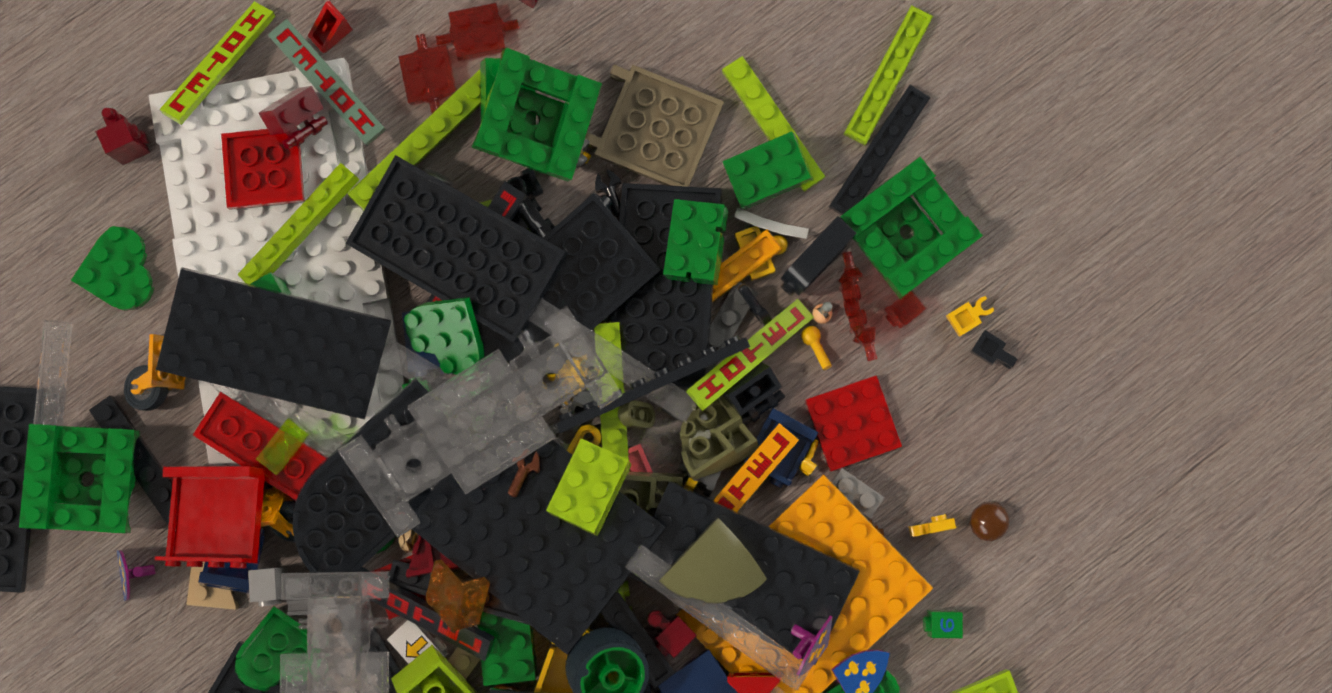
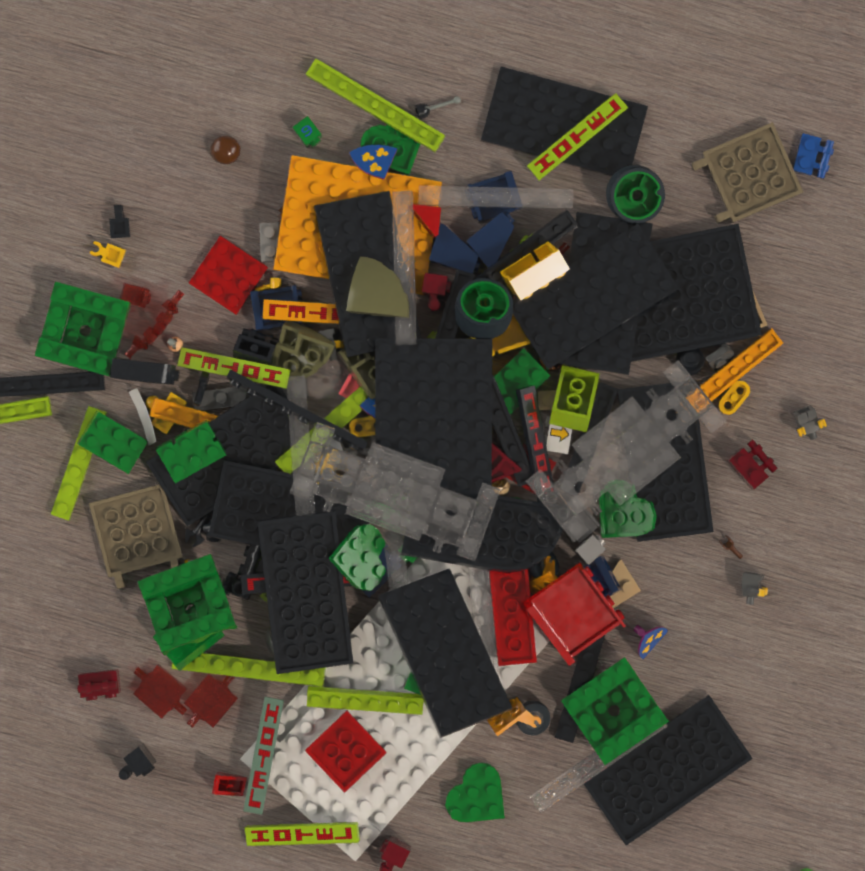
camera: 125 degrees left, 5 degrees up
(283, 446) = (501, 601): clear neon green plate -> none
(291, 111) = (297, 757): dark red brick -> none
(456, 602) = (512, 430): clear orange bracket -> none
(522, 473) = (409, 446): copper bar -> none
(589, 487) = (386, 400): lime brick -> none
(637, 415) = (322, 407): olive plate -> none
(811, 336) = (194, 339): yellow bar -> none
(815, 643) = (378, 202): shield -> none
(938, 524) = (250, 179): yellow plate -> none

